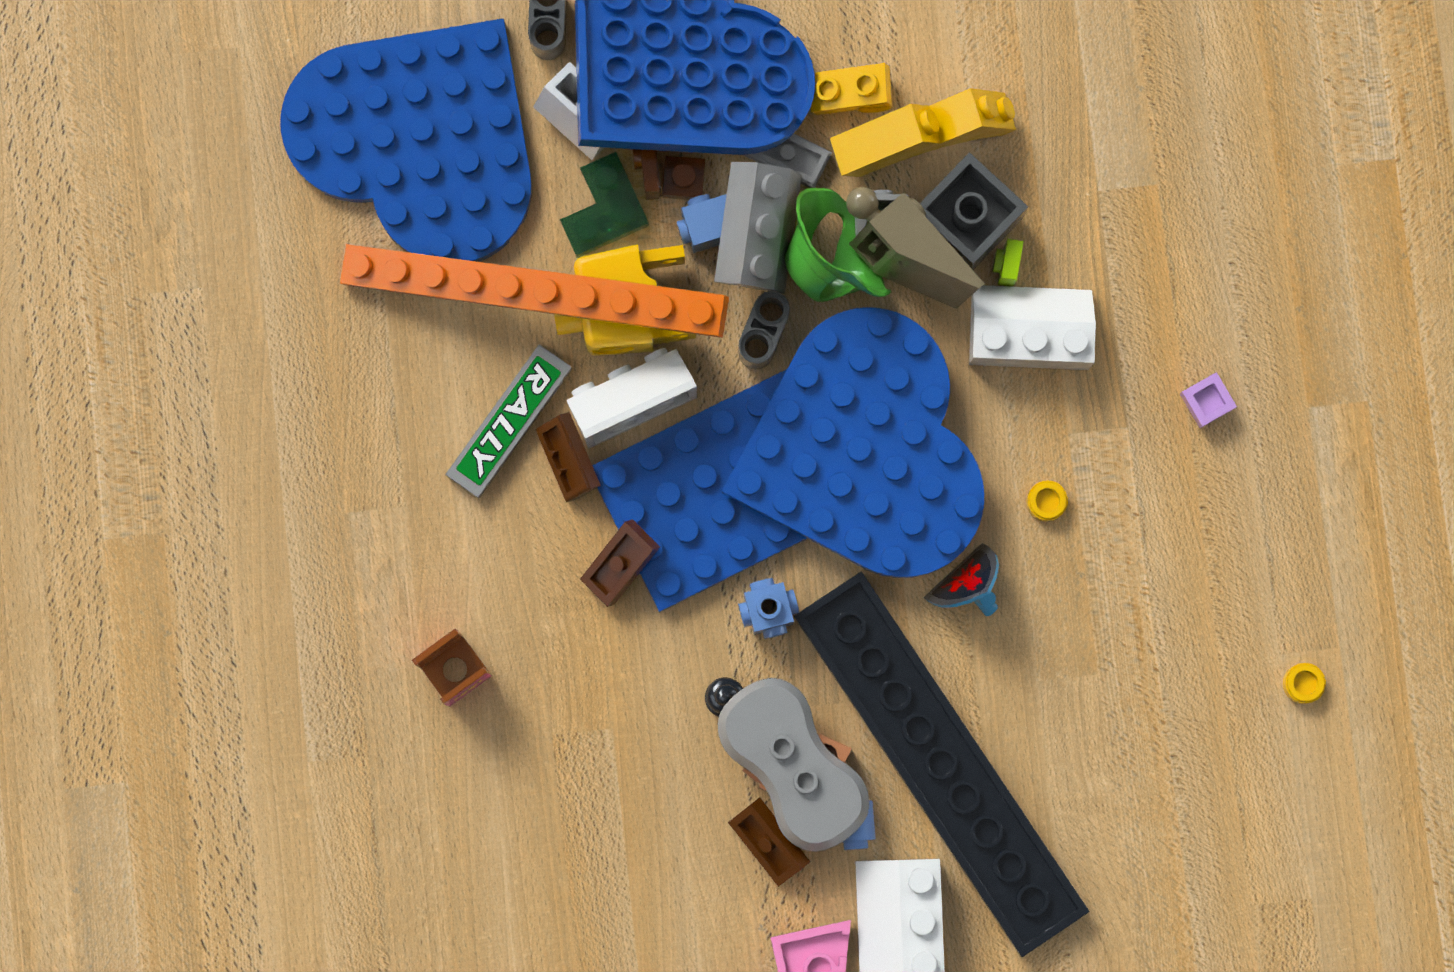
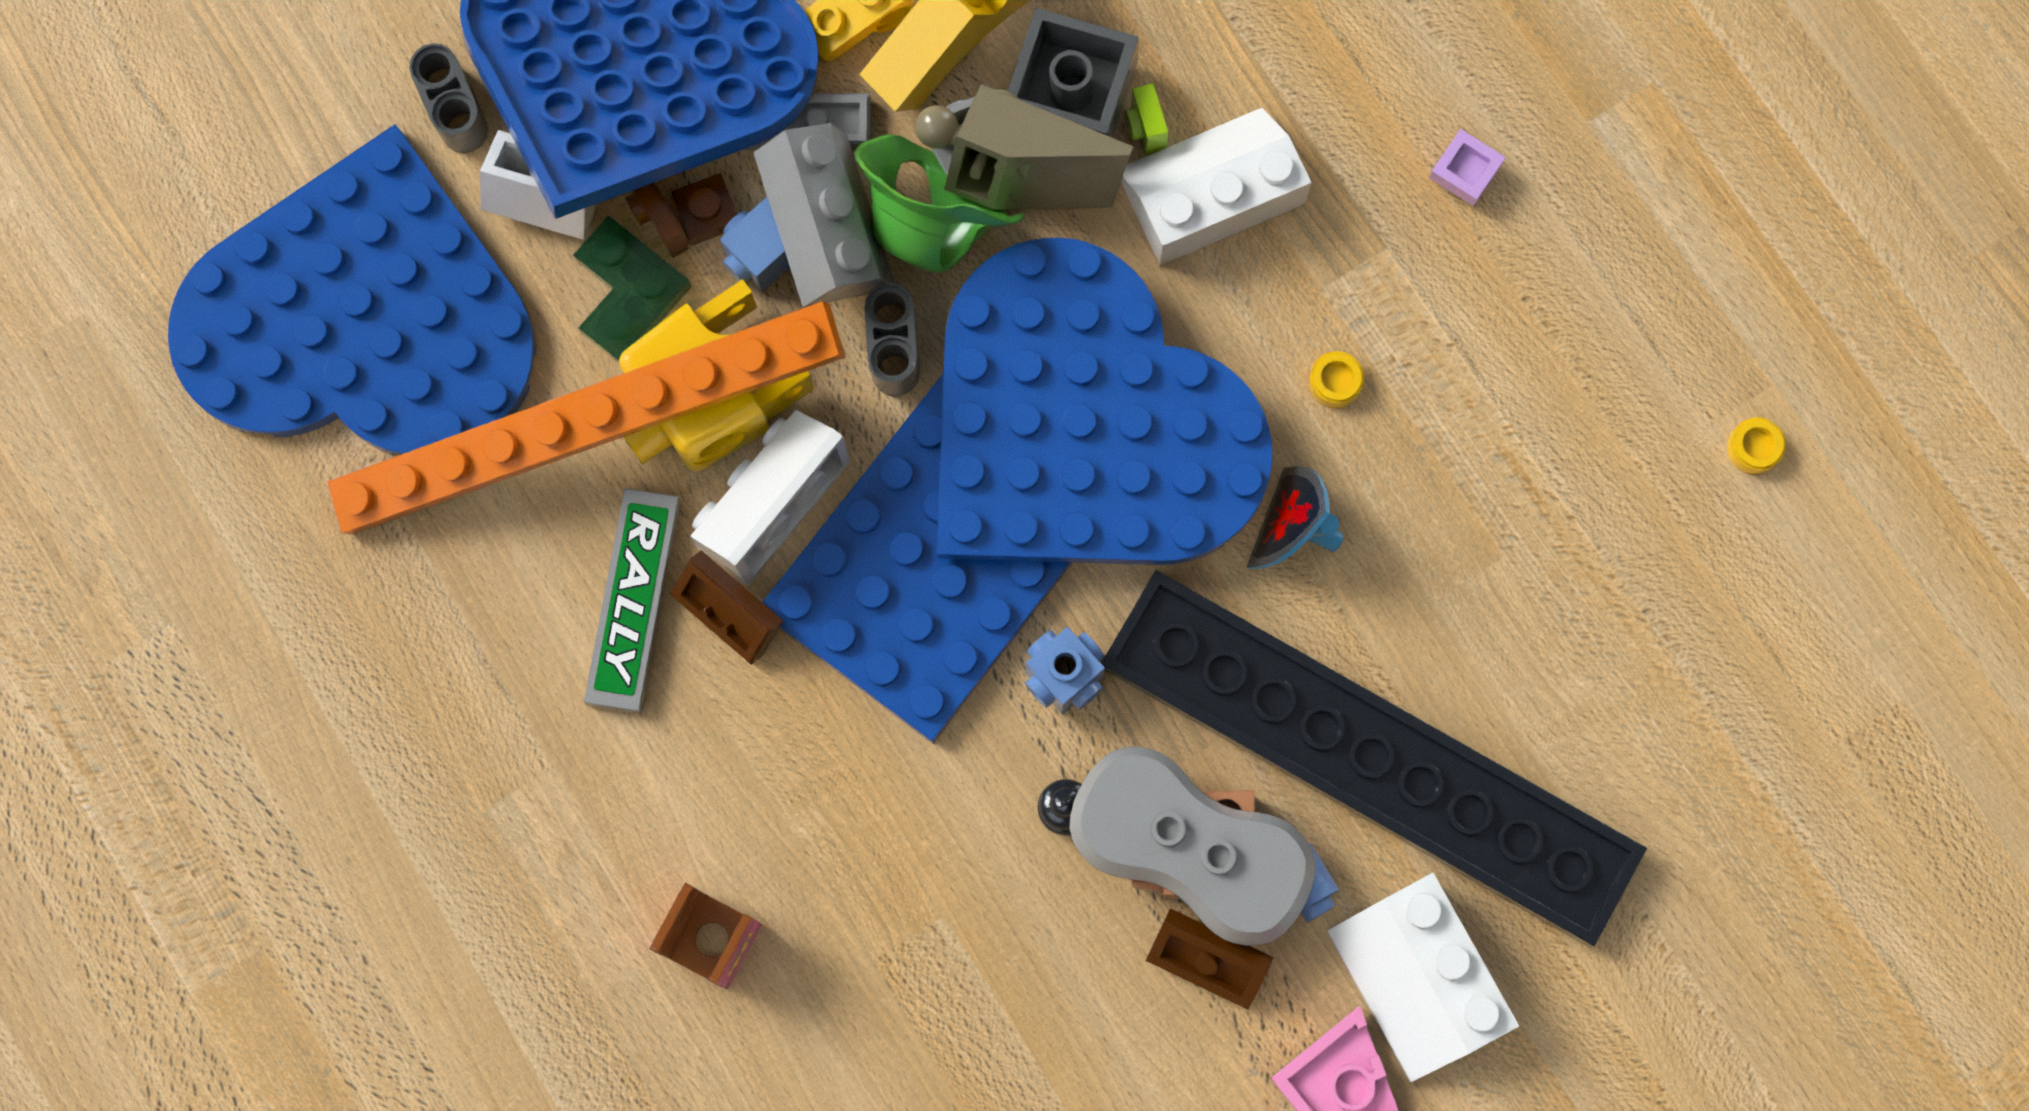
camera: 20 degrees left, 5 degrees down
(620, 563) = (853, 704): reddish brown plate -> none

